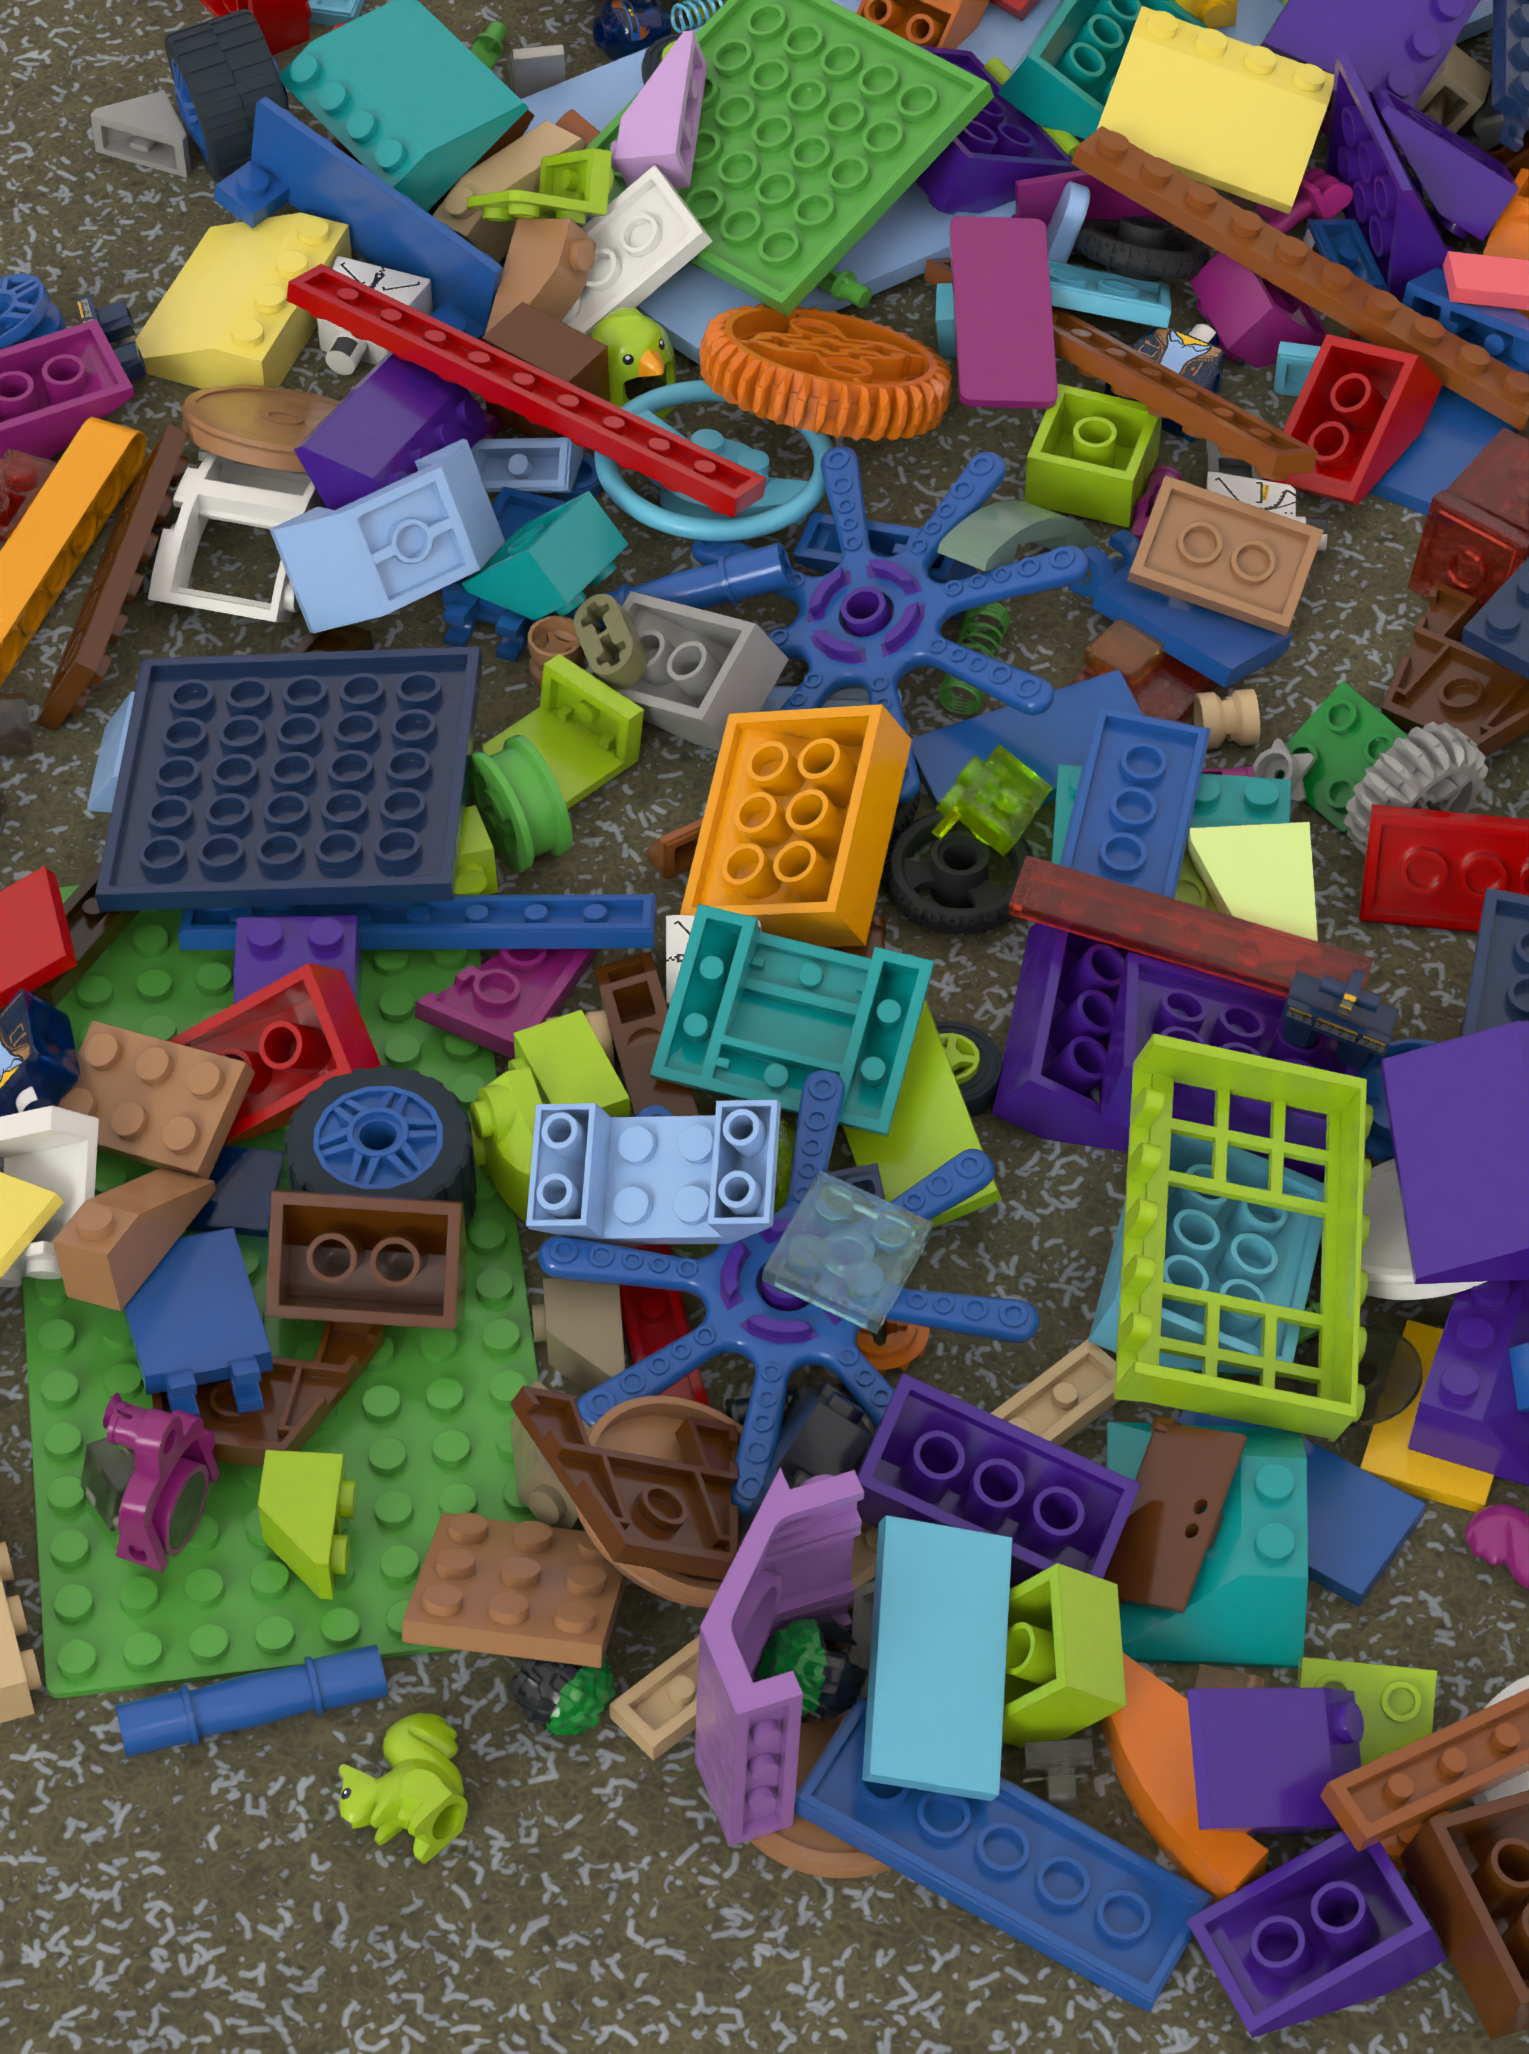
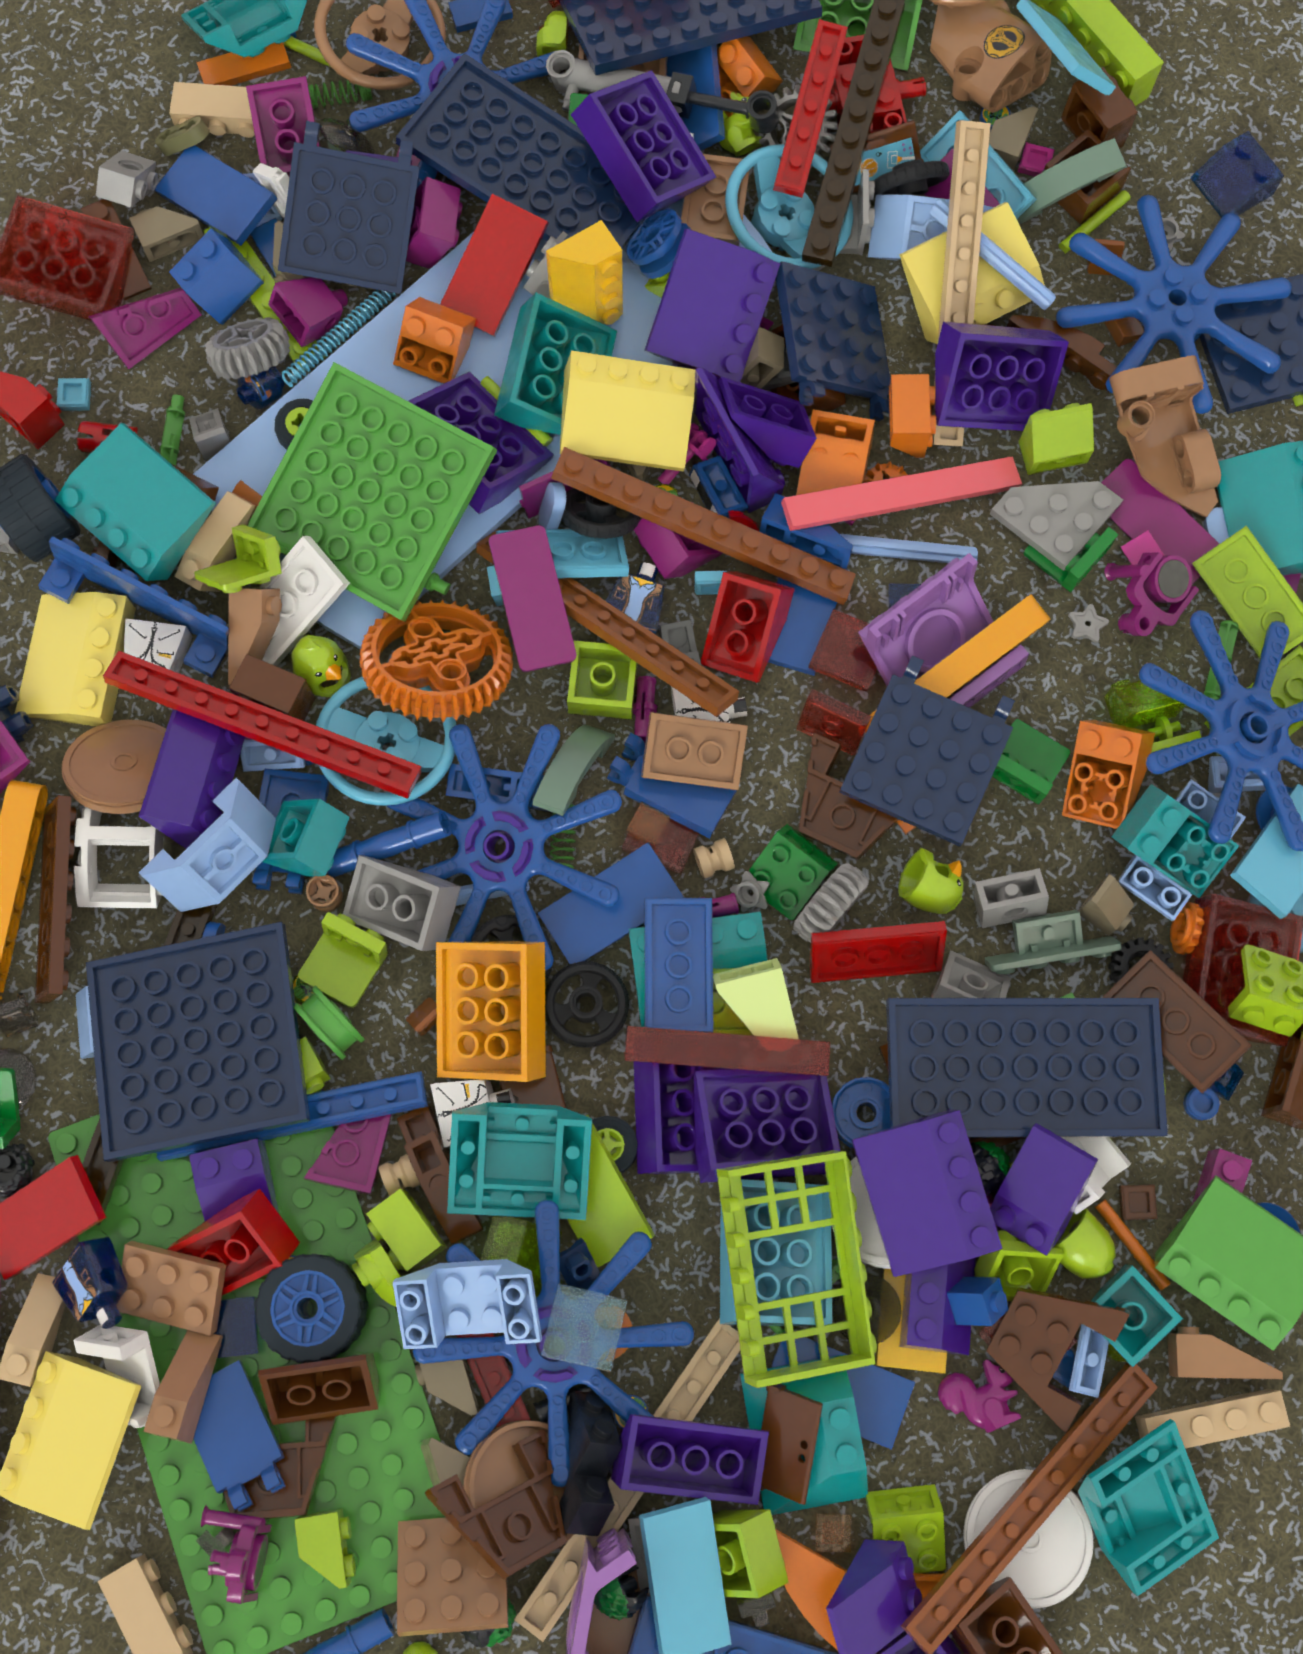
camera: 15 degrees left, 25 degrees up
(619, 635) = (355, 895): olive beam -> none
(664, 118) = (300, 500): lavender slope -> none
(993, 799) = (597, 964): clear neon green bracket -> none
(1340, 1012) = (819, 1090): dark blue hips -> none

